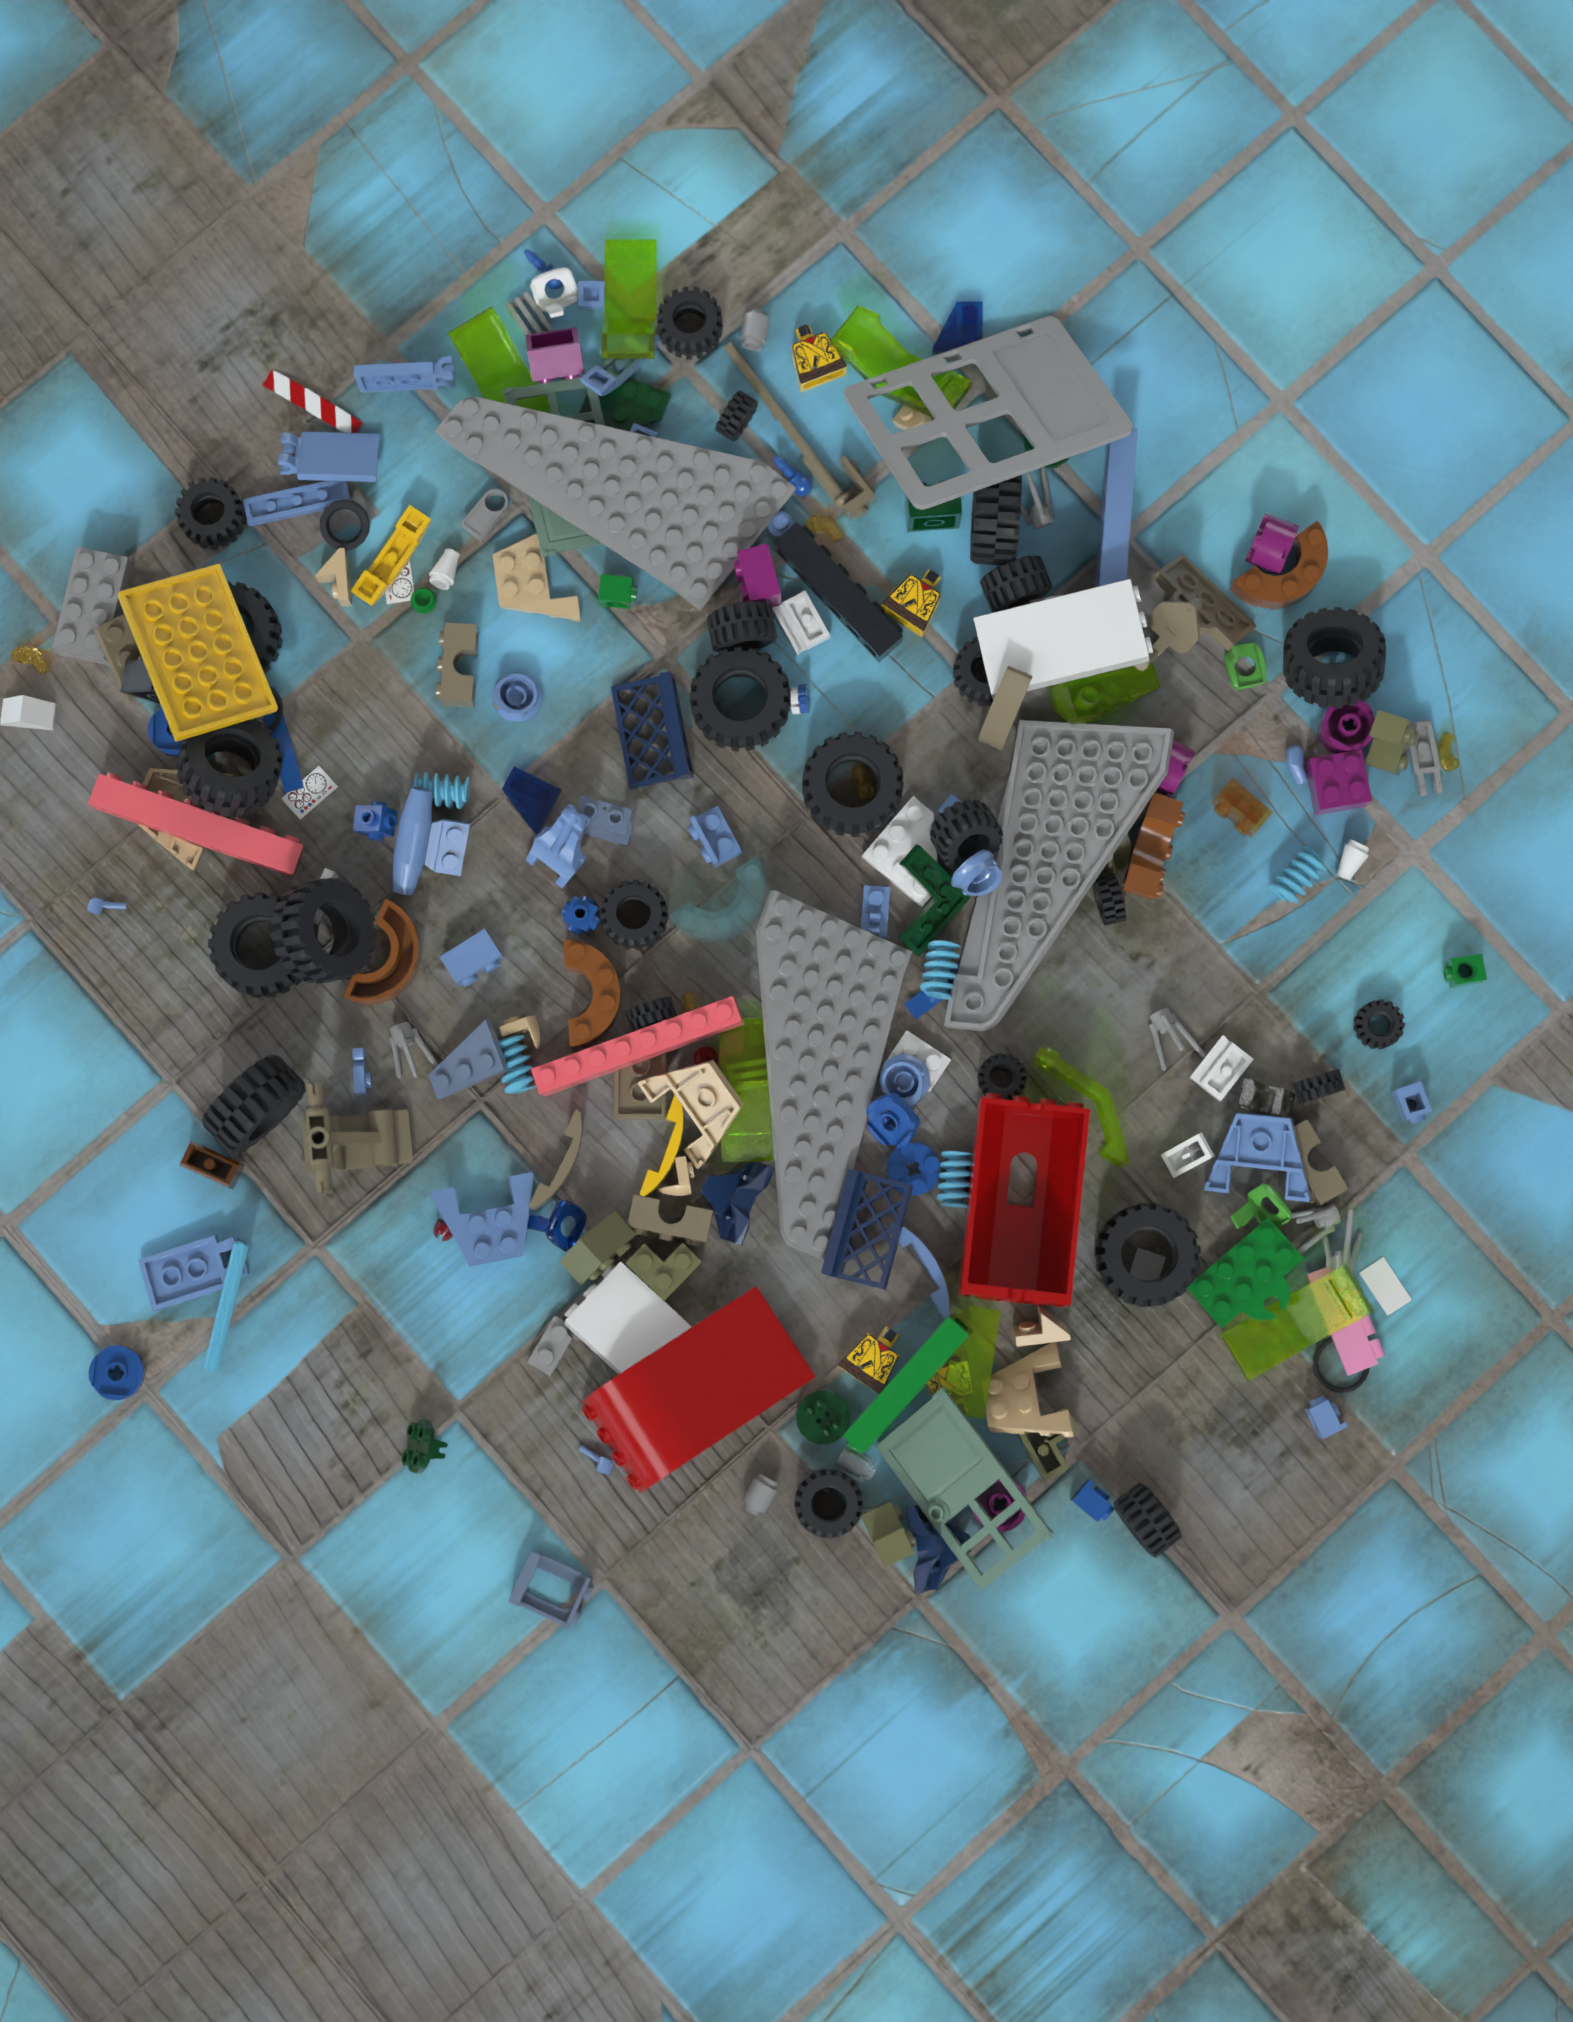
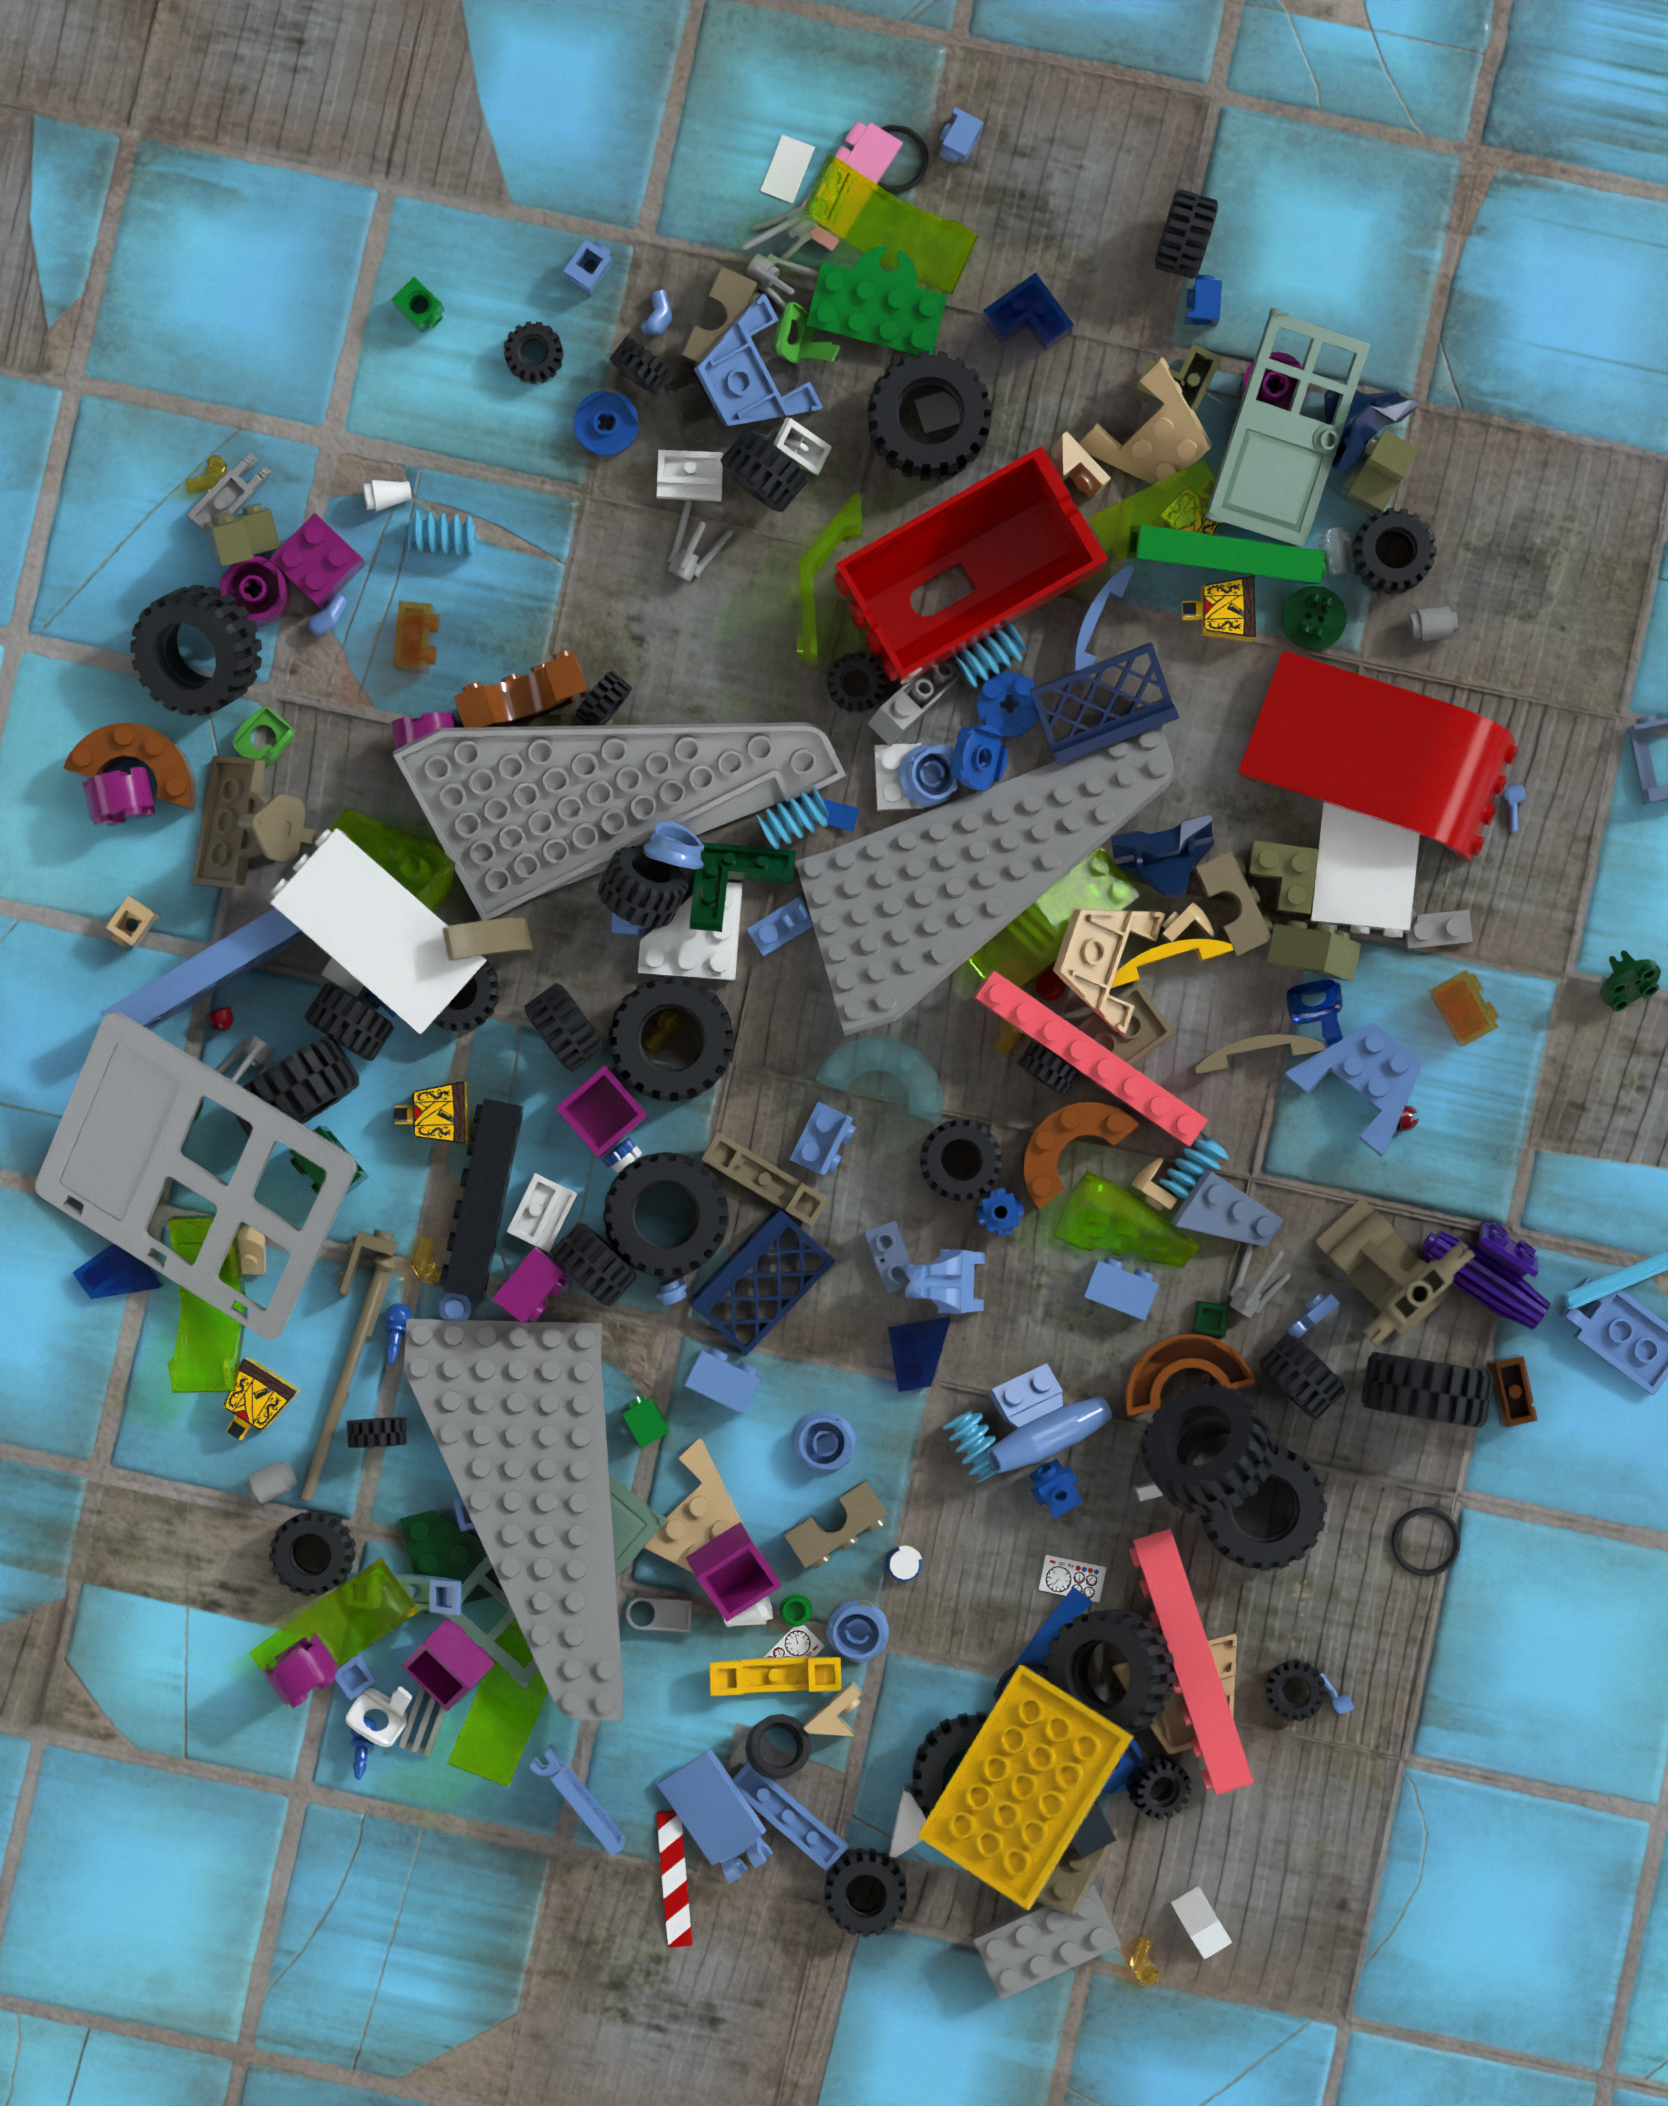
camera: 125 degrees left, 5 degrees up
(127, 896) = (1281, 1704): none -> black tyre
(146, 749) = (1170, 1798): none -> black tyre
(158, 1063) = (1456, 1546): none -> black tyre
(232, 569) = (907, 1824): none -> white slope
(298, 1213) = (1495, 1273): none -> dark purple plate
(325, 1031) = (1302, 1376): none -> black tyre
(380, 631) = (857, 1631): none -> medium blue hat
(401, 691) = (904, 1563): none -> white piece
(409, 1004) = (1210, 1318): none -> dark green tile
(477, 574) = (733, 1571): none -> magenta piece
(486, 1321) = (1464, 1007): none -> clear orange brick
(523, 986) = (1112, 1219): none -> clear neon green wedge
(605, 659) = (723, 1380): none -> medium blue brick
(620, 259) = (301, 1670): none -> magenta brick
(687, 668) = (671, 1291): none -> medium blue plate
(716, 781) = (765, 1179): none -> dark tan slope
(837, 705) = (602, 1111): none -> magenta piece
(911, 718) = (564, 1027): none -> black tyre
(961, 1106) = (913, 701): none -> light grey slope
(1079, 508) = (220, 1019): none -> dark red hinge
(1175, 1378) = (1029, 306): none -> clear blue brick
(1184, 486) = (128, 911): none -> tan brick
(1188, 1115) = (764, 470): none -> black tyre
(1307, 1028) = (606, 404): none -> blue plate
(1343, 1126) = (660, 317): none -> medium blue arm

